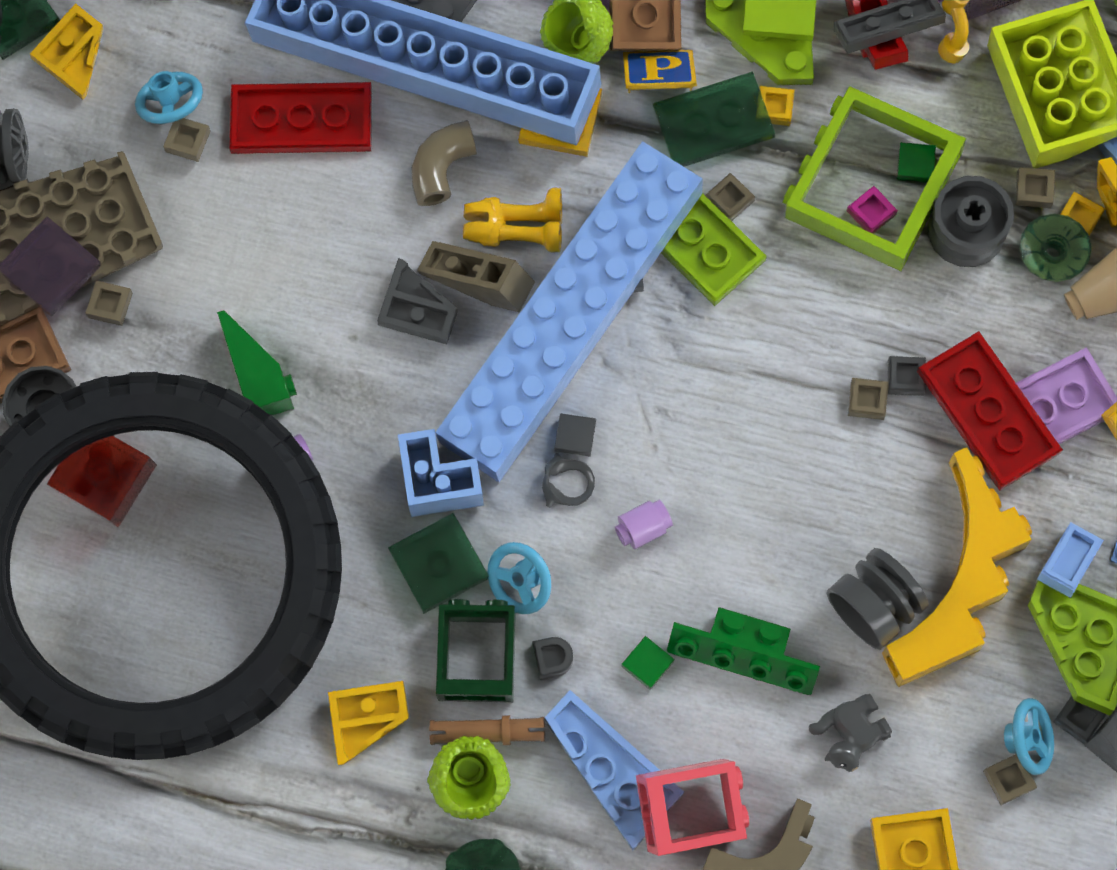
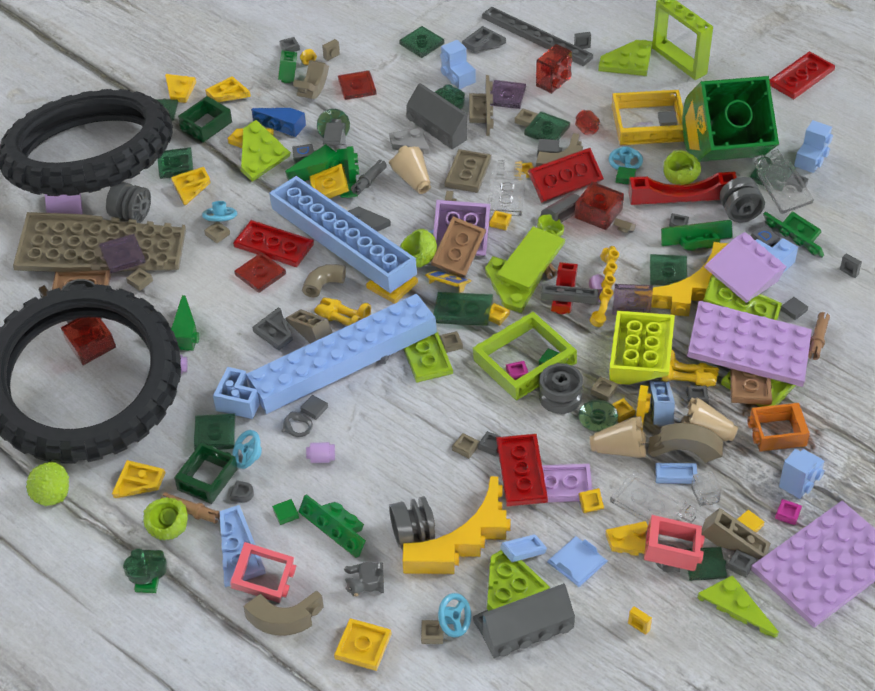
camera: 25 degrees right, 25 degrees down
(221, 801) = (48, 484): none -> lime hair
(314, 191) = (260, 272): none -> clear red tile

